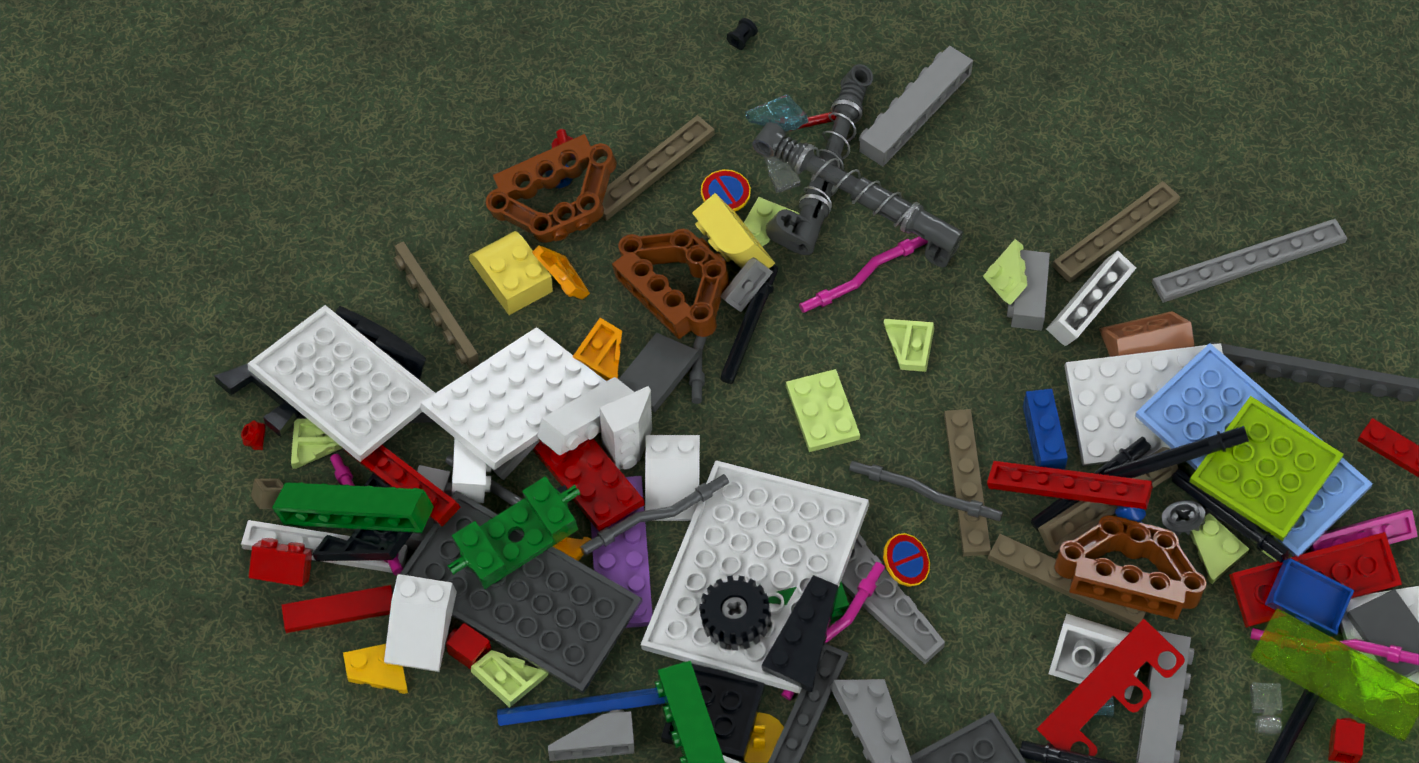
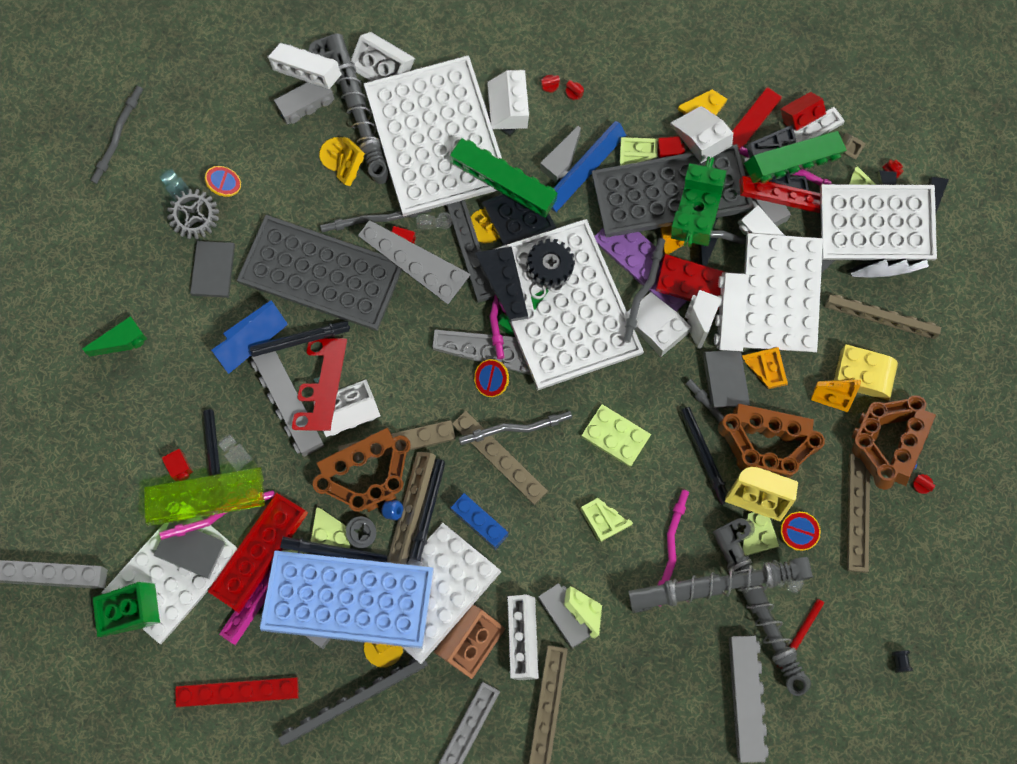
camera: 140 degrees right, 15 degrees up
(746, 284) = (727, 471): light grey plate -> none
(780, 111) = (821, 616): clear light blue wing -> none
(1070, 484) = (435, 491): red plate -> none
(1180, 454) = (363, 574): black axle -> none
(1272, 473) = (328, 586): lime plate -> none
(1309, 596) = (251, 531): blue container -> none

